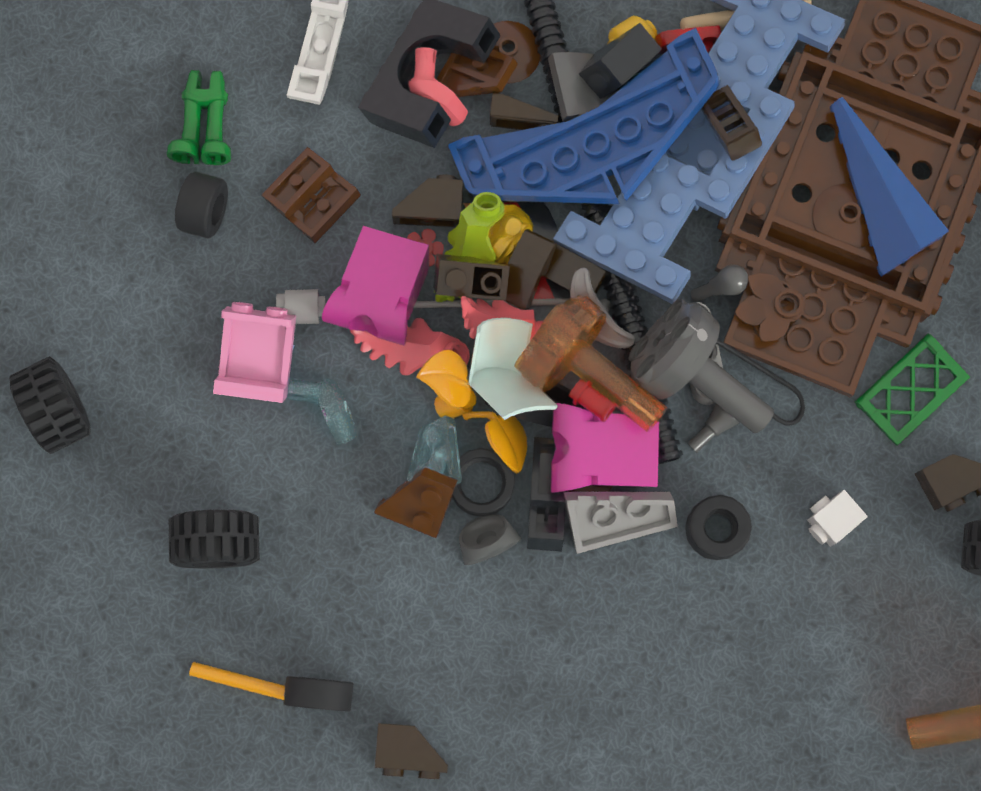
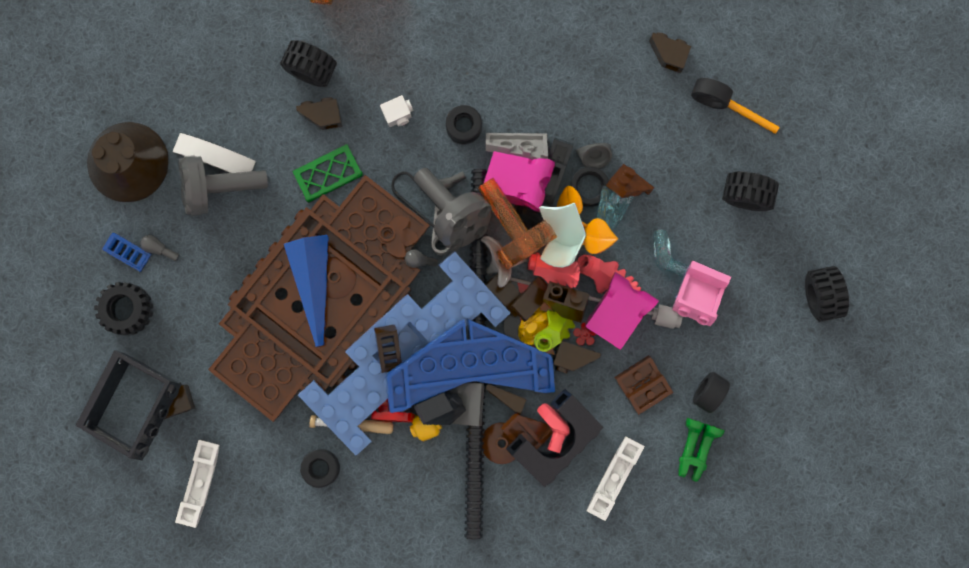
camera: 160 degrees left, 5 degrees up
(592, 400) = (519, 203): red pin -> none

